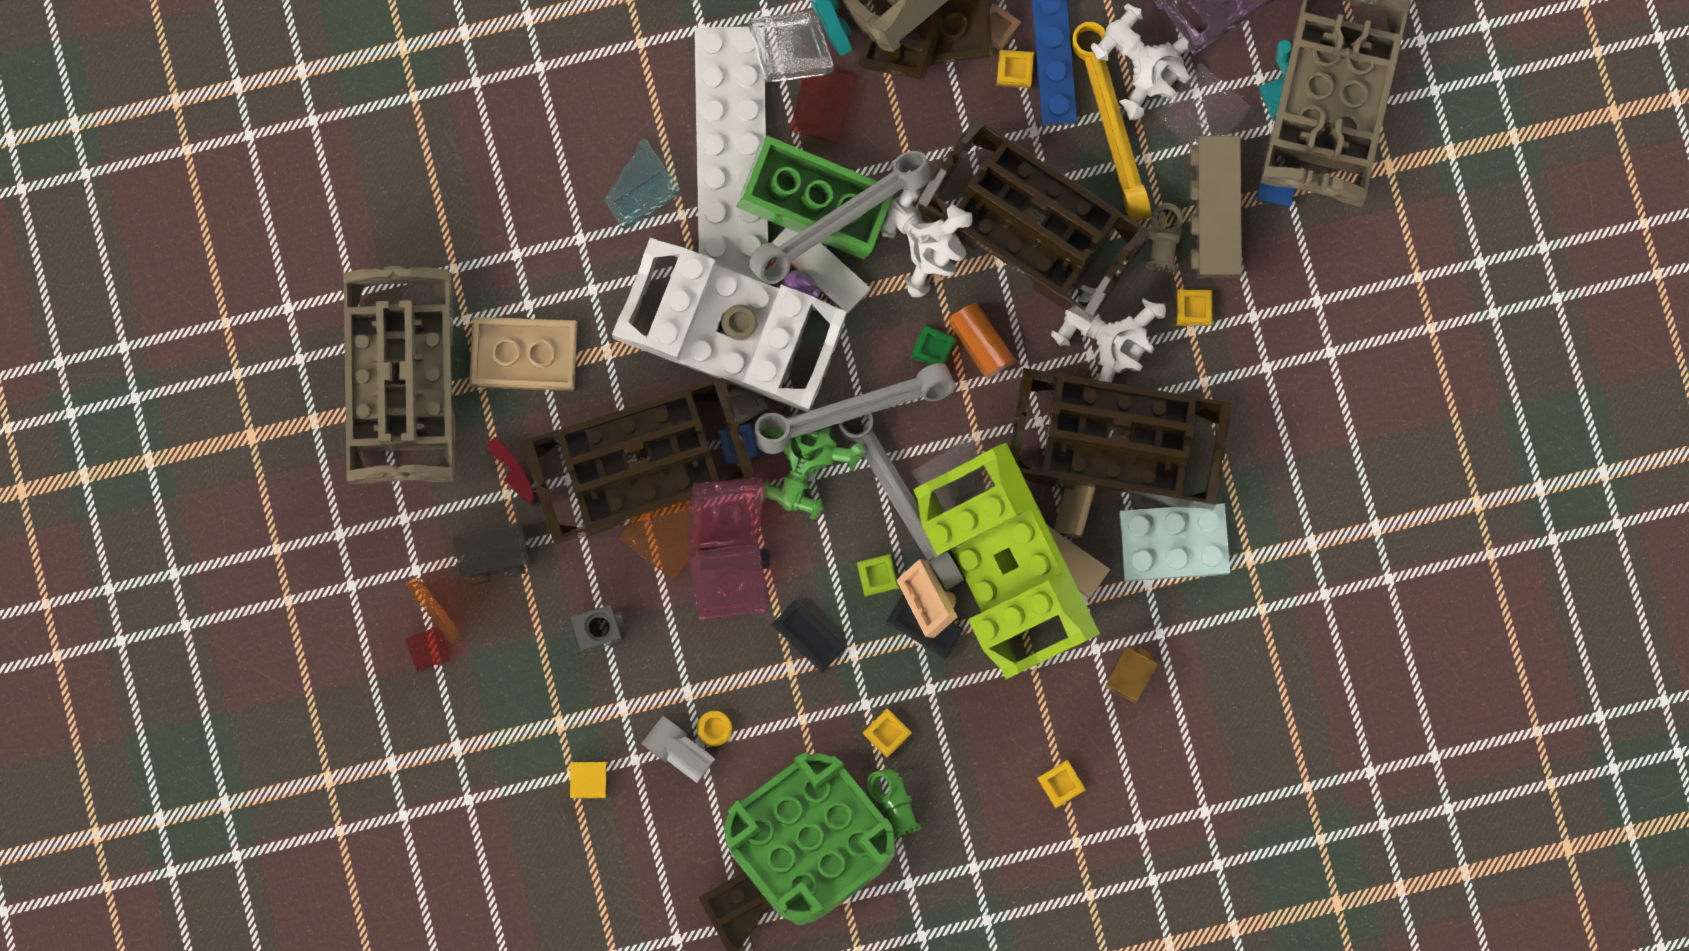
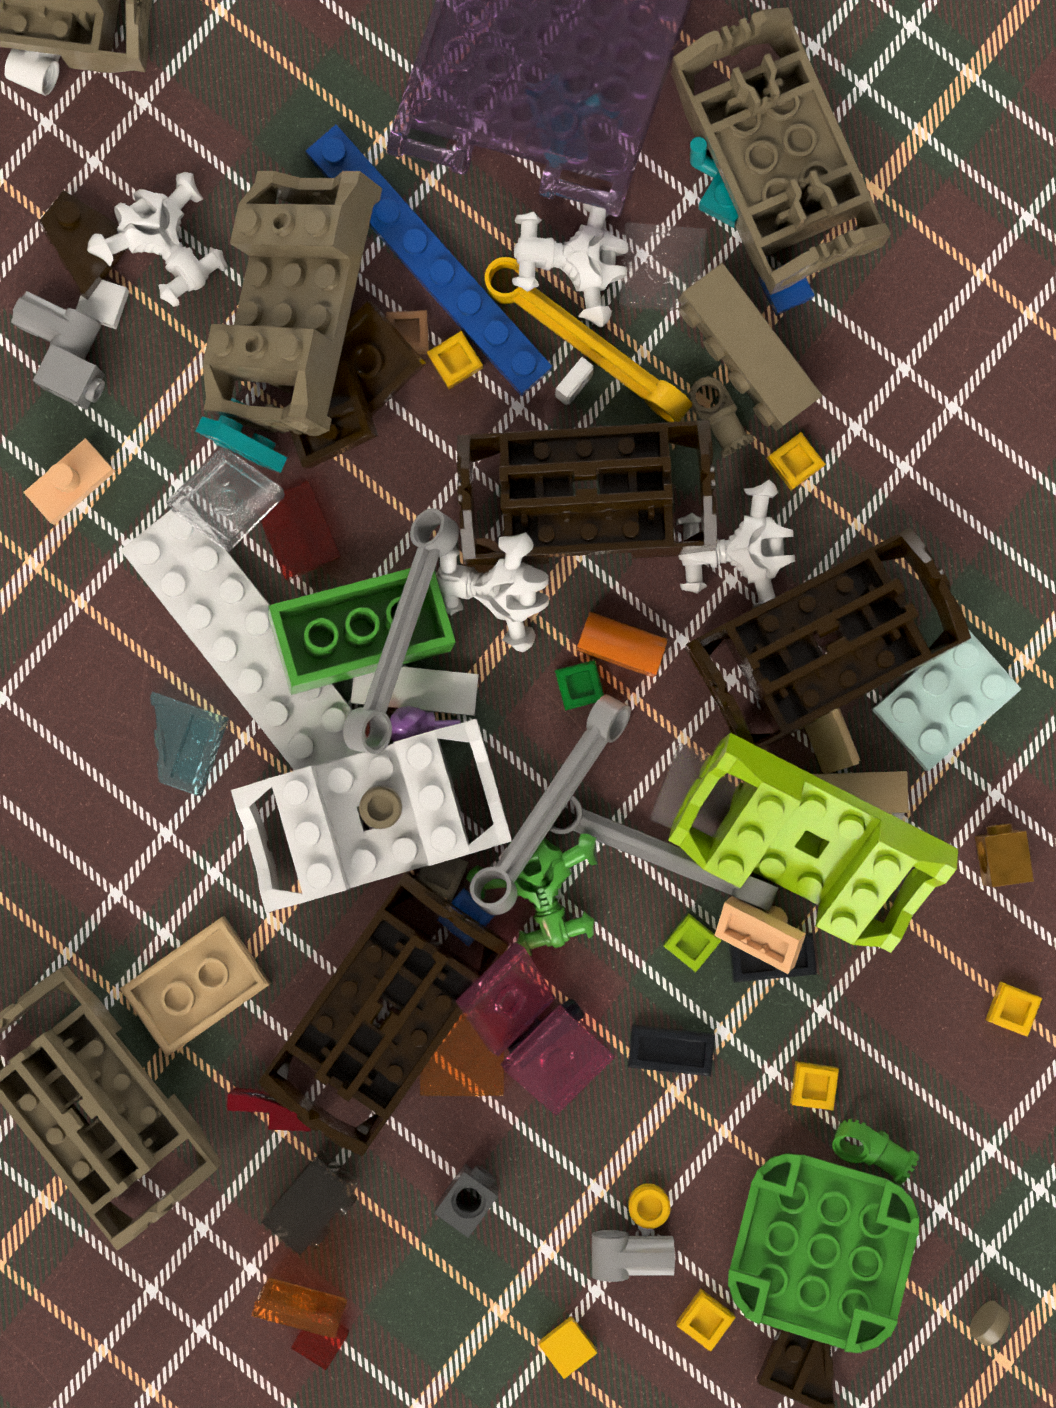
camera: 35 degrees left, 5 degrees up
(694, 833) = (705, 1320): none -> yellow tile
(1083, 142) = (574, 381): none -> white tile

